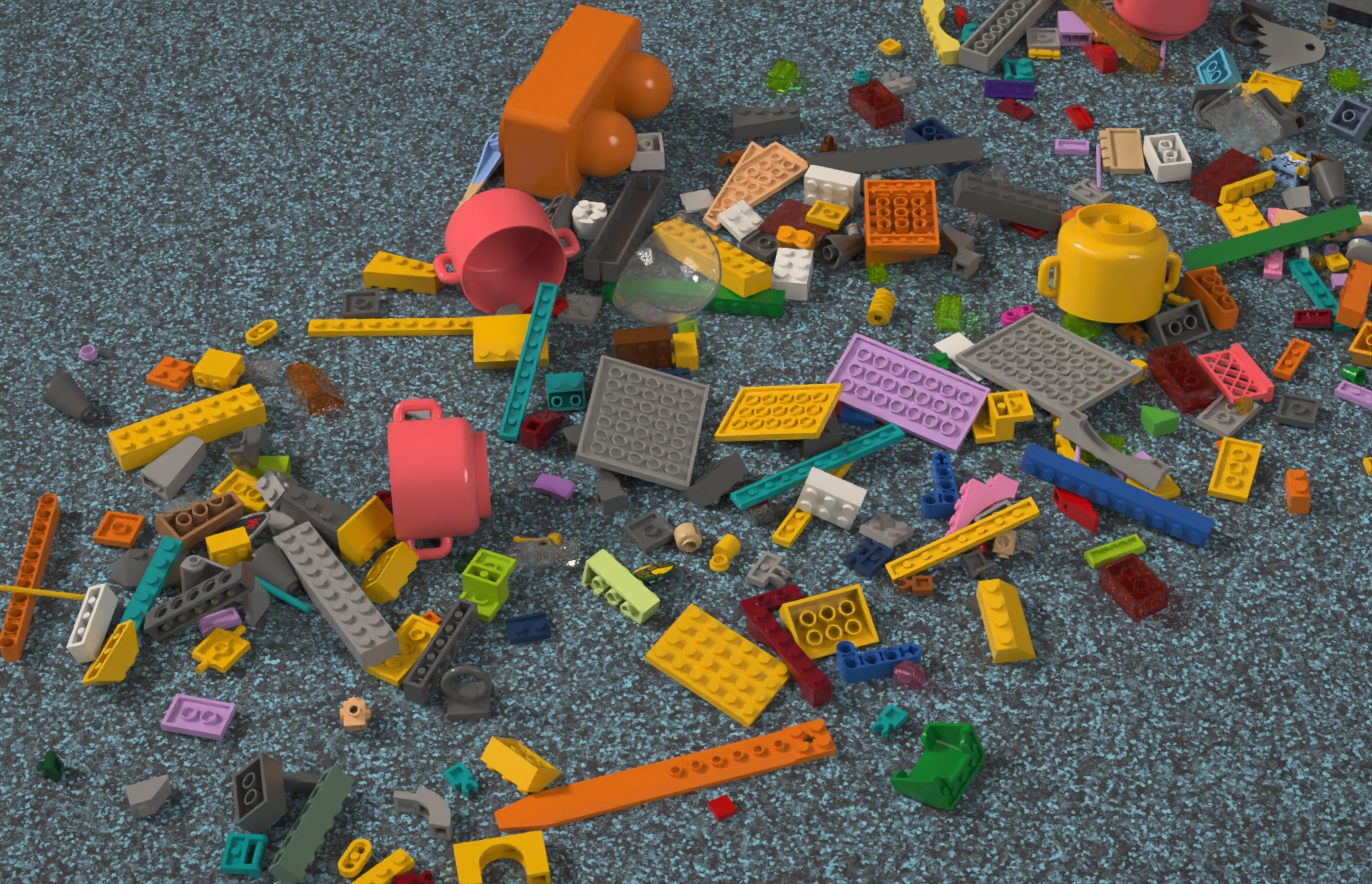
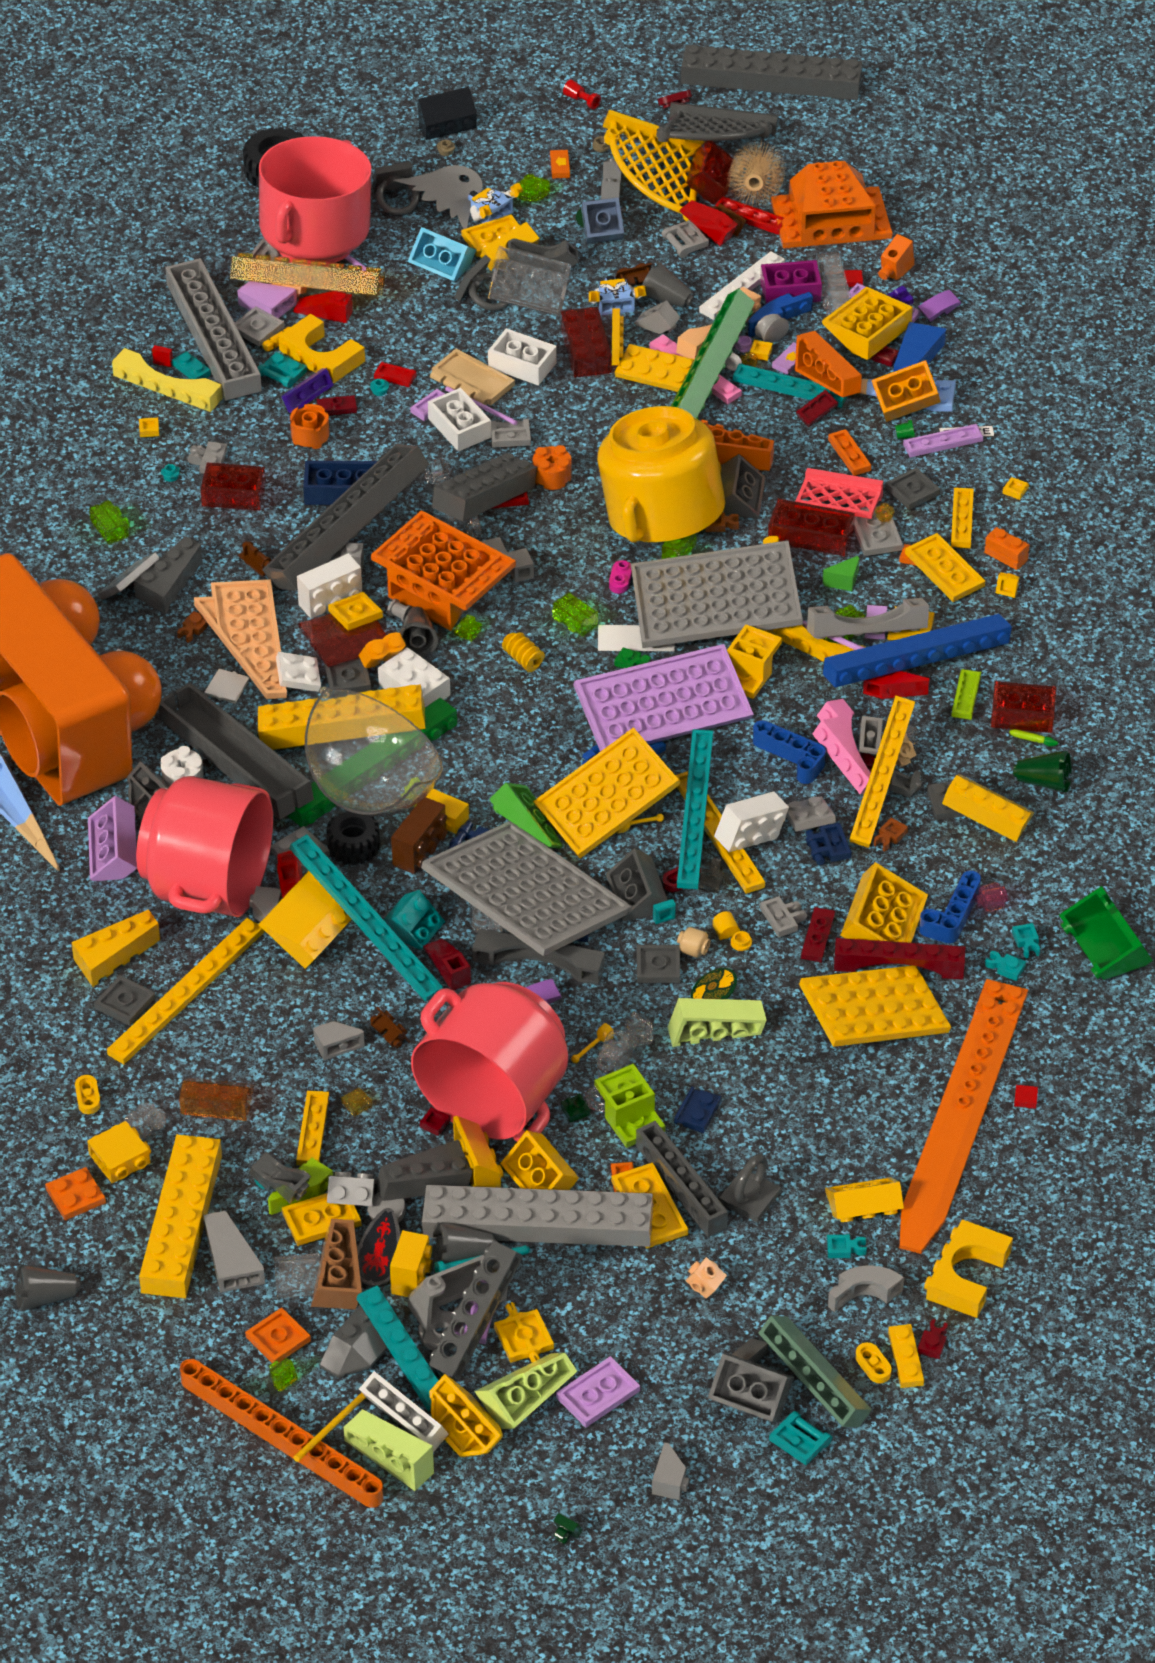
camera: 55 degrees left, 5 degrees up
(50, 642) = (391, 1448): none -> yellowish green wedge
(84, 549) = (282, 1374): none -> clear neon green tile
(155, 671) = (522, 1391): none -> yellowish green wedge
(325, 446) = (312, 1126): none -> yellow plate
(372, 455) = (356, 1101): none -> clear yellow plate
(605, 319) = (353, 837): none -> black tyre
(704, 507) = (664, 911): none -> teal tile
(723, 387) = (517, 806): none -> bright green wedge
(727, 106) = (128, 576): none -> light grey tile
(771, 444) = (659, 817): none -> yellow hinge
(852, 725) = (1008, 966): none -> teal plate
(974, 105) = (309, 426): none -> orange brick
(1051, 86) = (309, 330): none -> yellow arch
(1057, 117) = (379, 387): none -> teal plate
(1067, 162) = (459, 419): none -> white brick
(1082, 638) = (1046, 771): none -> dark green cone
(1122, 625) = (1048, 741): none -> lime piece
(1260, 512) = (1007, 584): none -> yellow tile
(1299, 69) = (492, 203): none -> torso
(1301, 452) = (962, 518): none -> yellow plate

